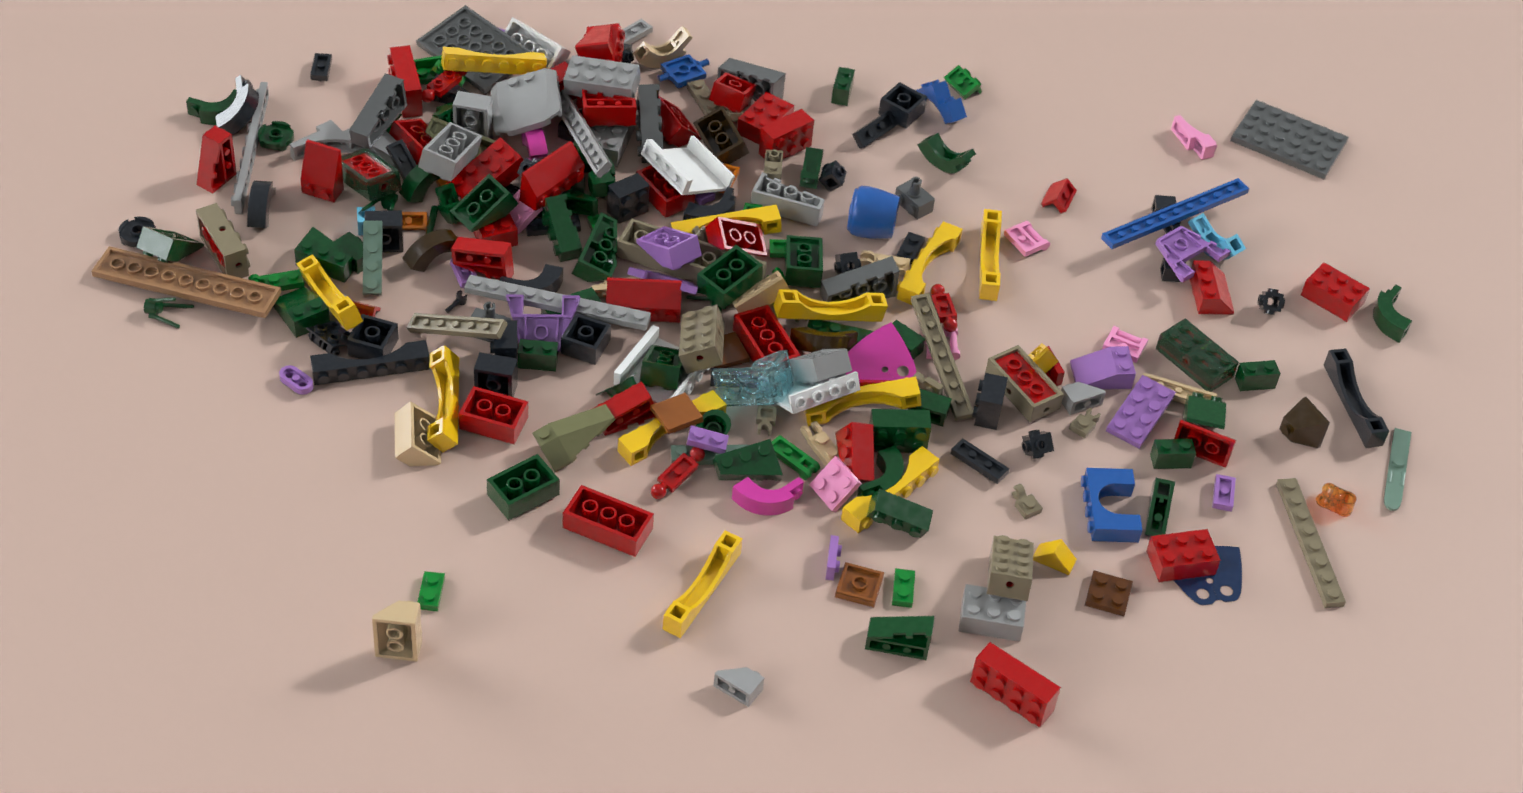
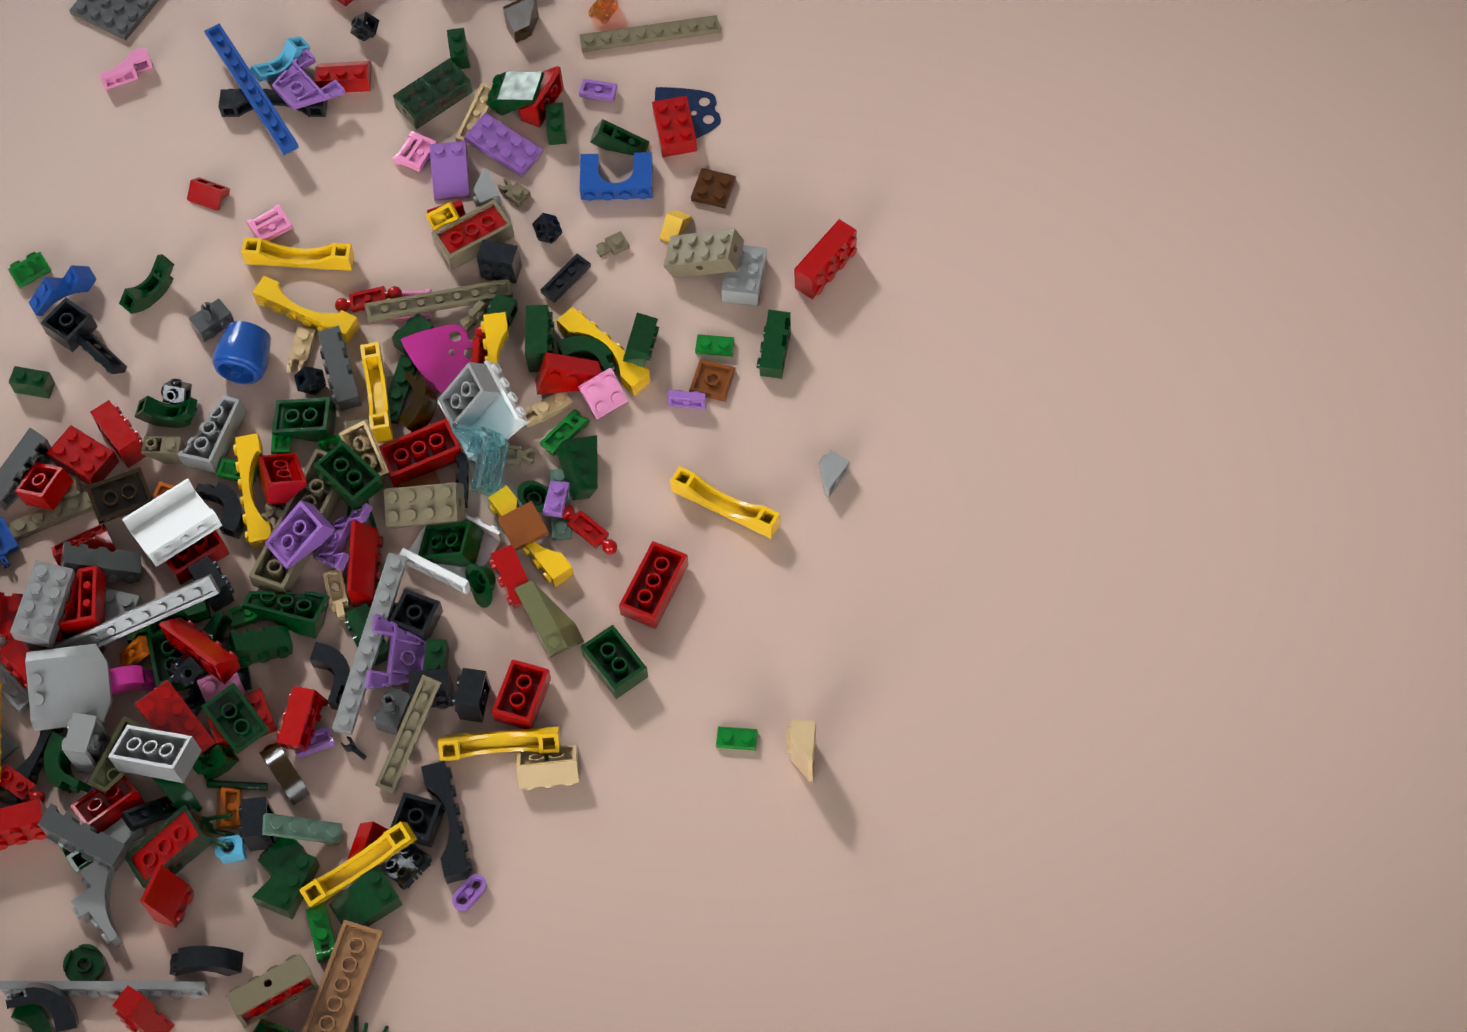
camera: 80 degrees left, 15 degrees up
(765, 501) = (618, 463): dark pink arch -> none
(911, 246) = (279, 327): black plate -> none

